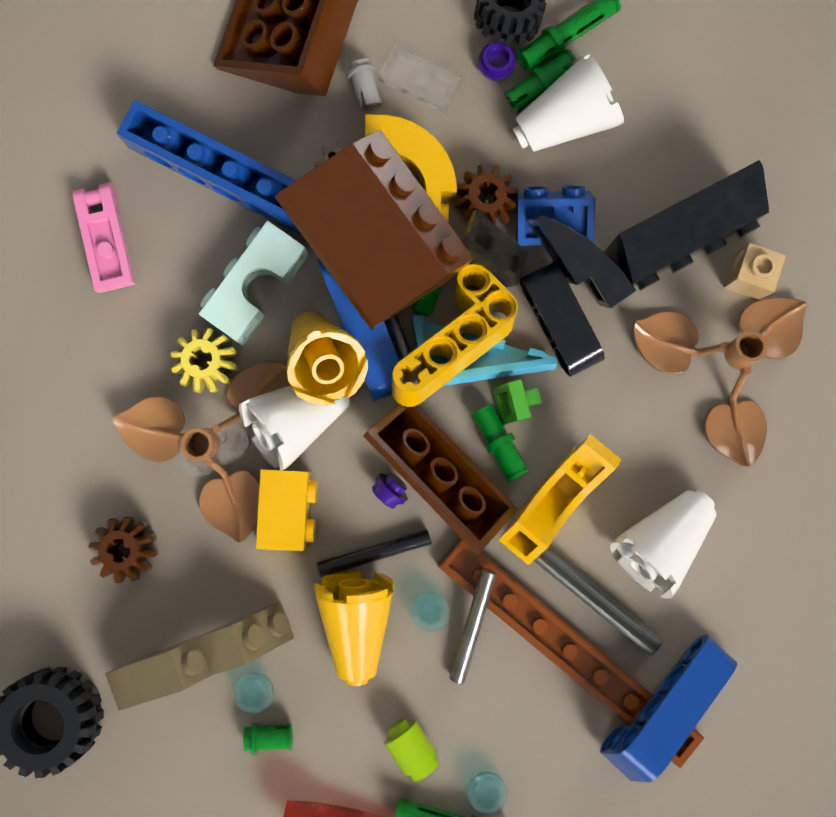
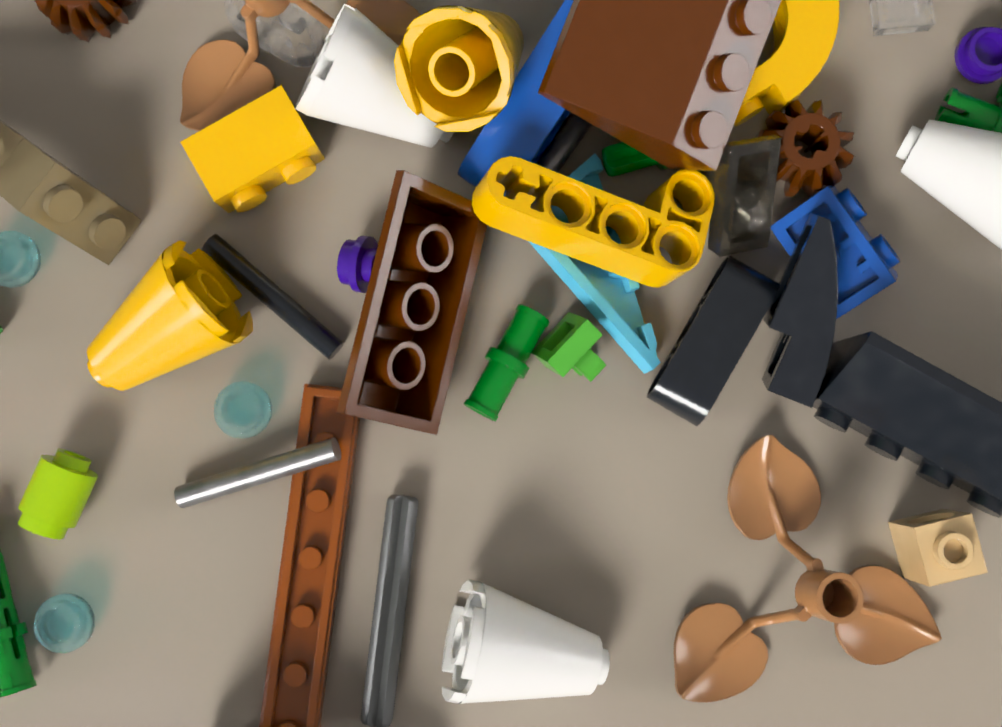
camera: 60 degrees right, 0 degrees up
(557, 498) = (482, 478): yellow arch -> none

